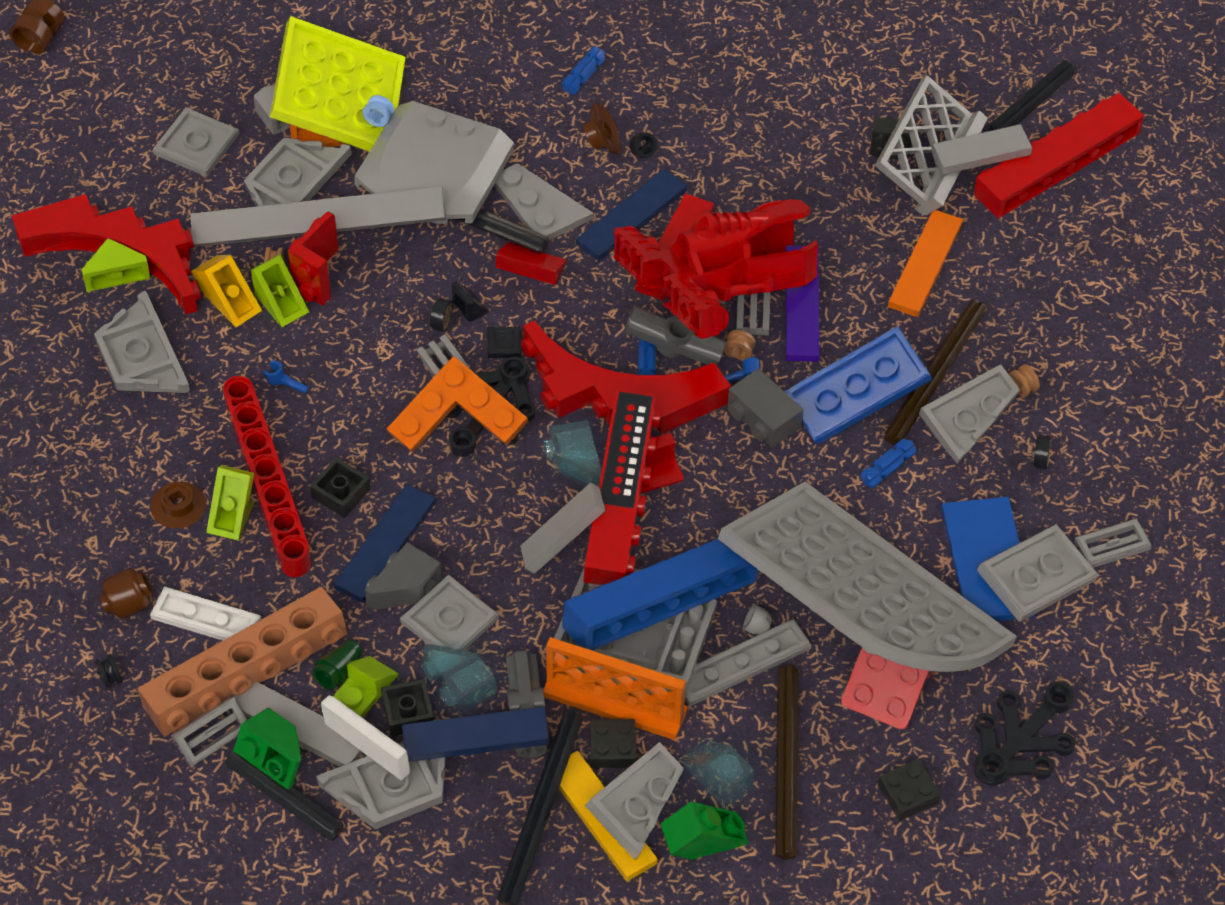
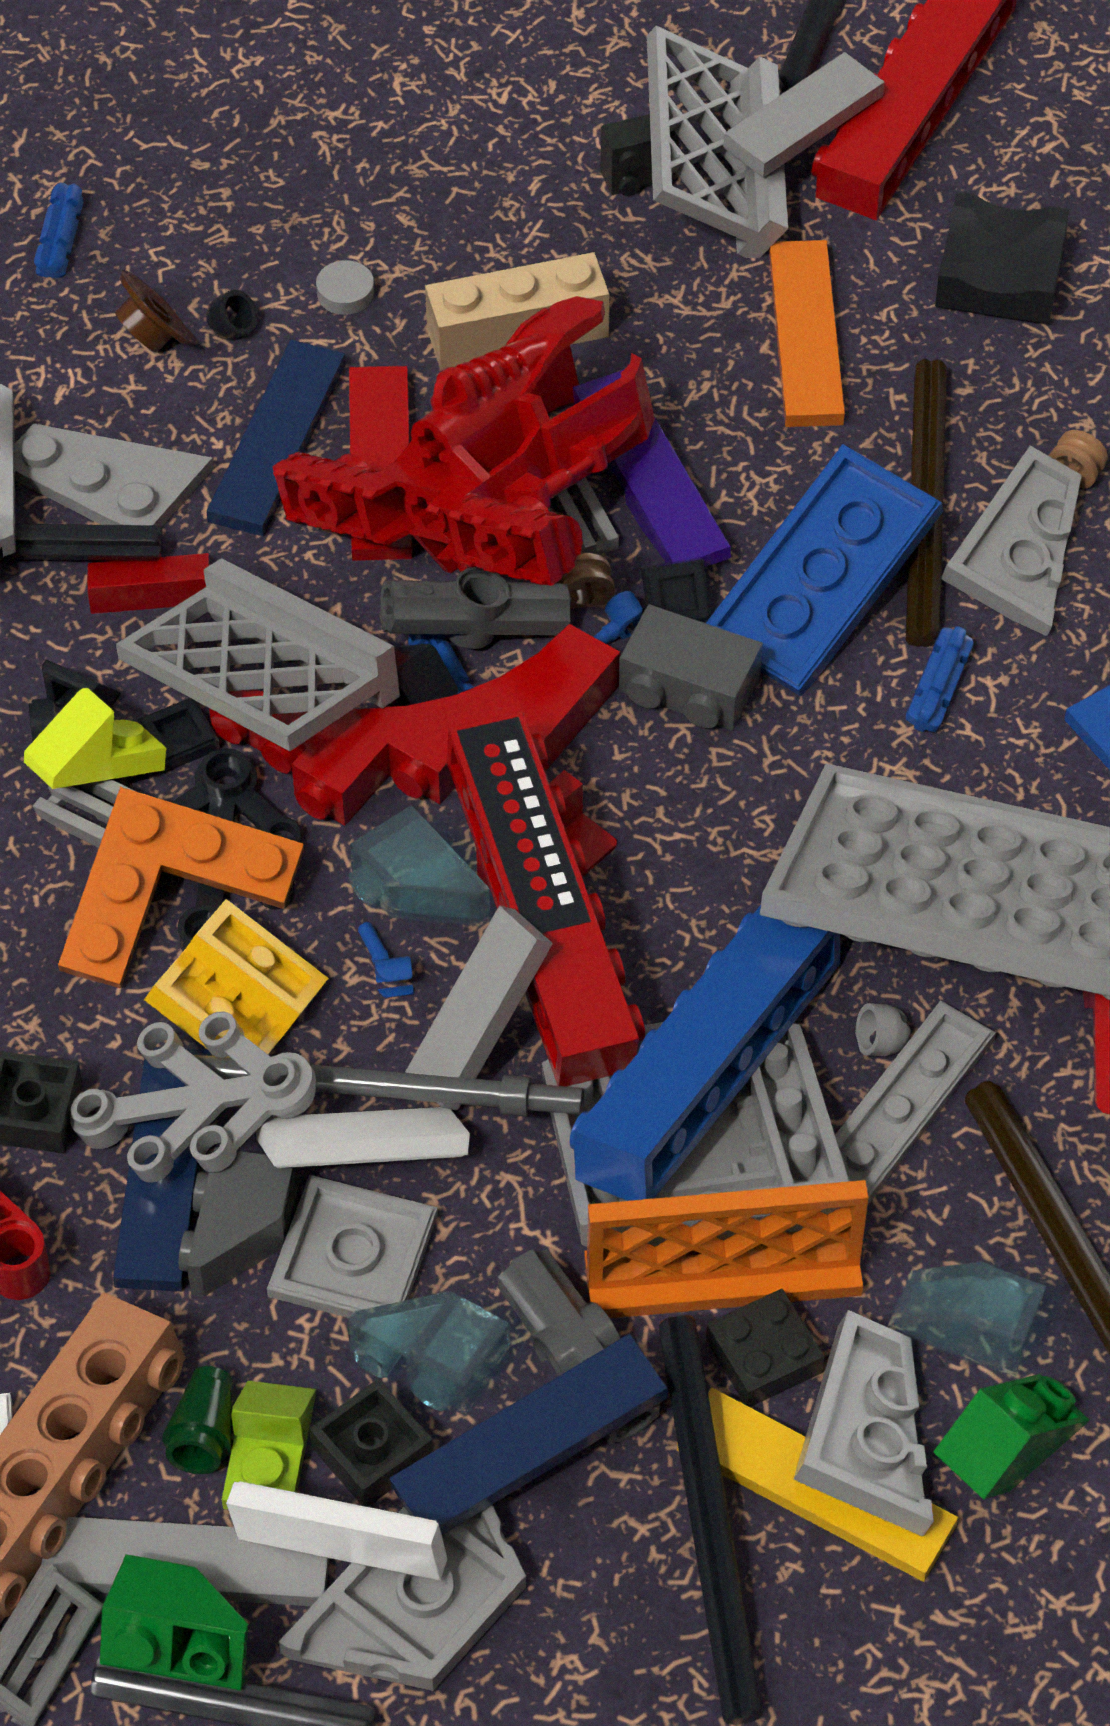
camera: 25 degrees left, 0 degrees up
(448, 525) = (104, 1119): none -> light grey plant
(451, 332) = (91, 746): none -> neon yellow slope
(461, 474) = (240, 971): none -> yellow slope
(478, 566) = (363, 1137): none -> white tile
(538, 493) = (386, 968): none -> blue hand
(557, 575) = (512, 1095): none -> dark grey bar
(577, 314) = (285, 631): none -> light grey fence
(627, 357) = (422, 675): none -> black slope
(707, 151) = (345, 287): none -> light grey tile
(760, 186) = (484, 310): none -> tan brick
(781, 367) = (678, 588): none -> black tile
(1046, 263) = (1002, 259): none -> black brick

